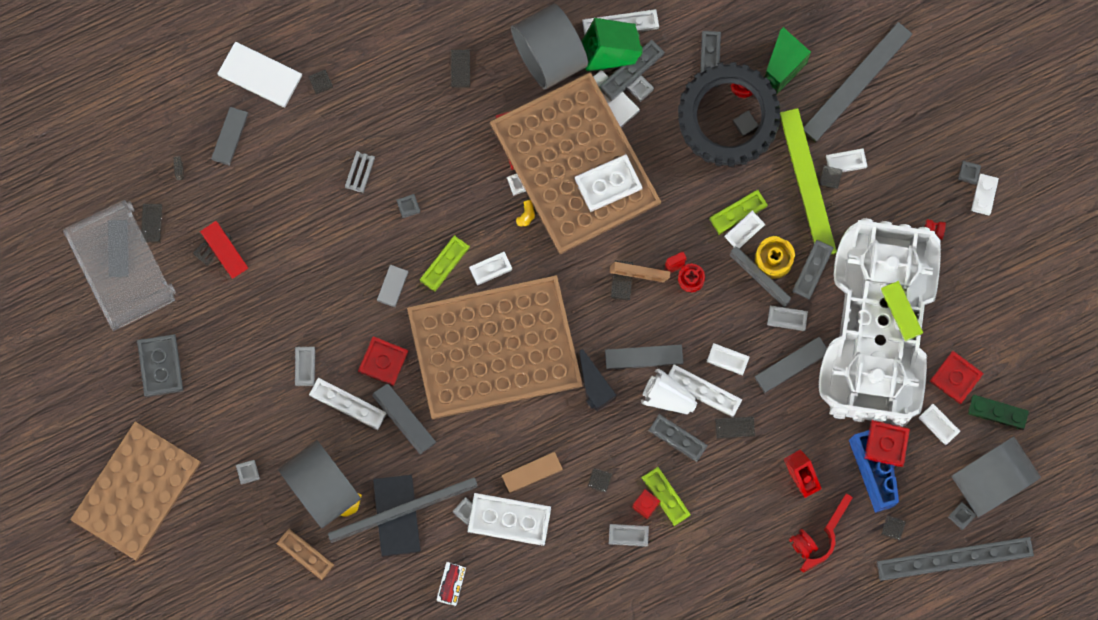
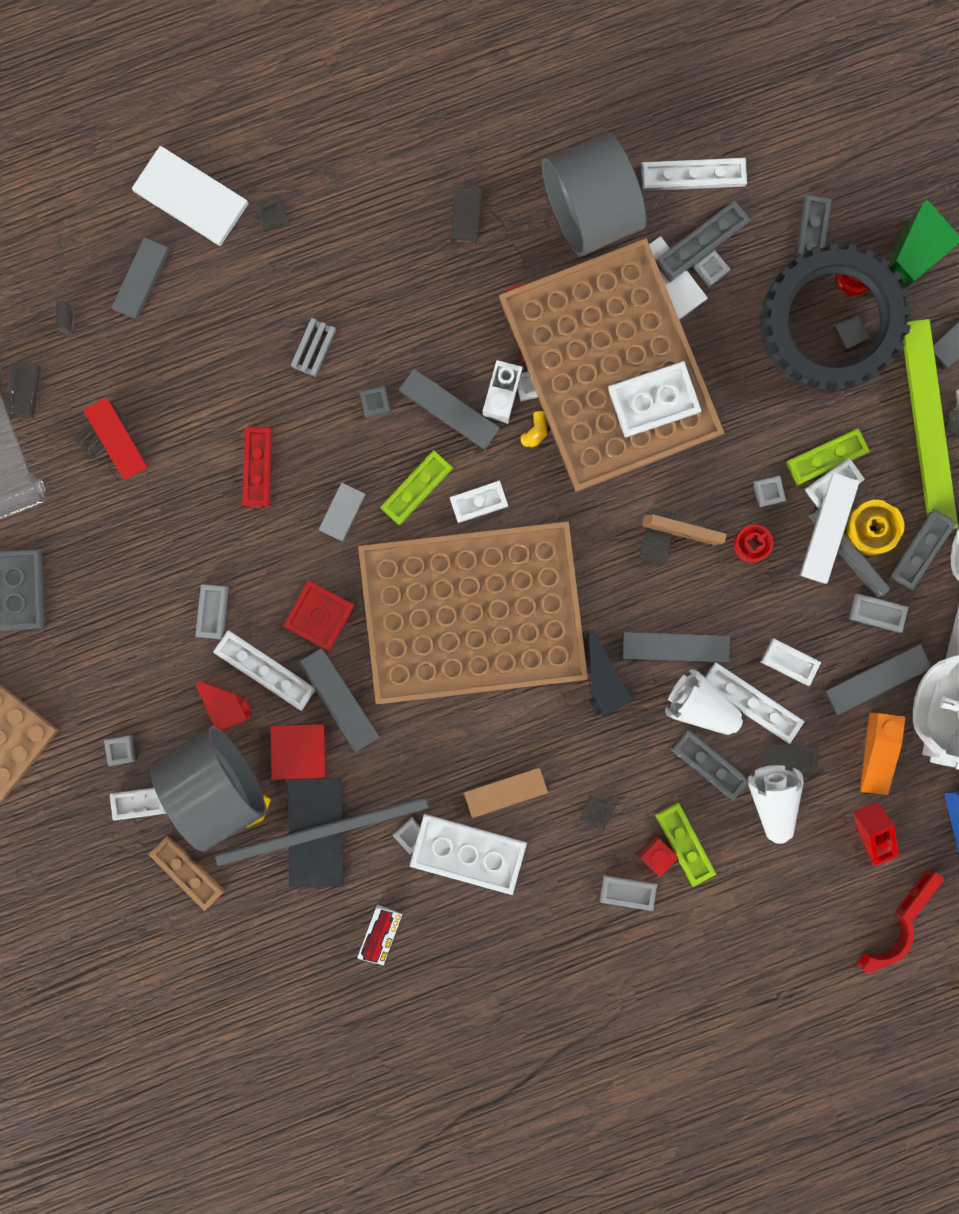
camera: 10 degrees right, 10 degrees up
(265, 507) = (135, 804): none -> white plate
(322, 430) = (223, 706): none -> red slope
(327, 260) = (257, 467): none -> red tile
(378, 459) = (298, 752): none -> red tile
(462, 206) = (449, 409): none -> dark grey tile
(499, 189) = (502, 392): none -> white slope
(611, 44) = (680, 200): green slope -> none
(675, 262) = (735, 522): red tile -> none
(699, 240) = (769, 491): none -> light grey tile
(727, 456) = (777, 800): none -> white cone
(742, 260) = (829, 528): none -> white tile
(799, 415) = (881, 752): none -> orange slope
(803, 544) = (867, 934): red wheel -> none

